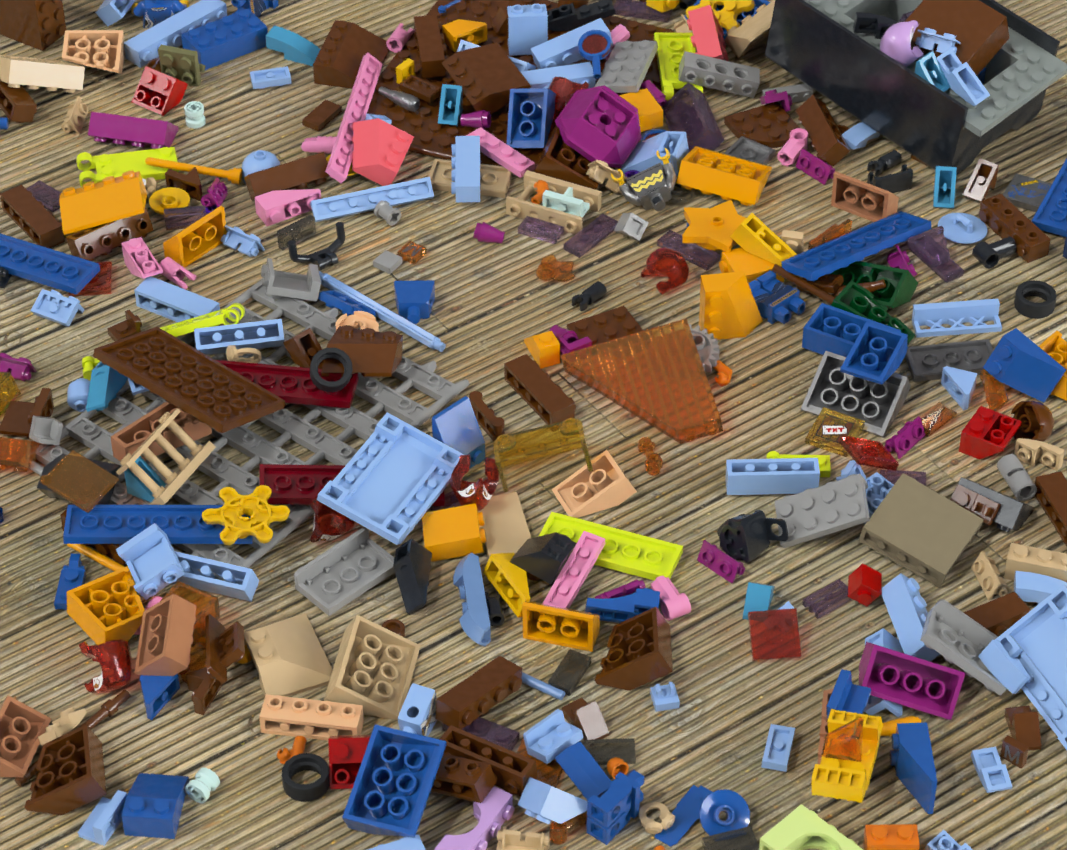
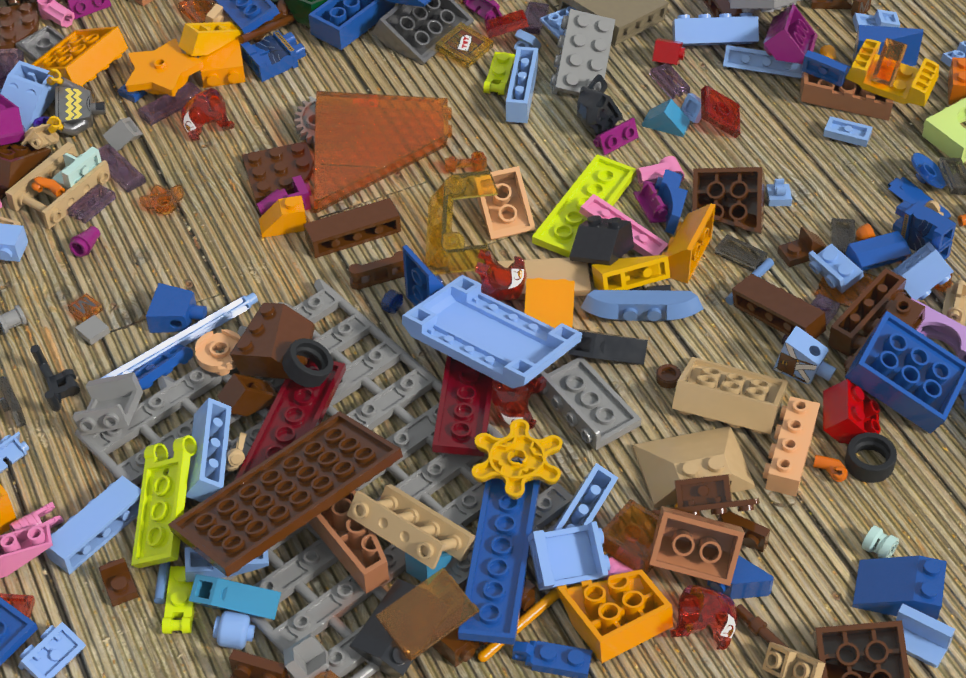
camera: 80 degrees left, 5 degrees up
(589, 295) = (215, 177): black bar -> none
(727, 306) = (291, 75): light orange wedge -> none

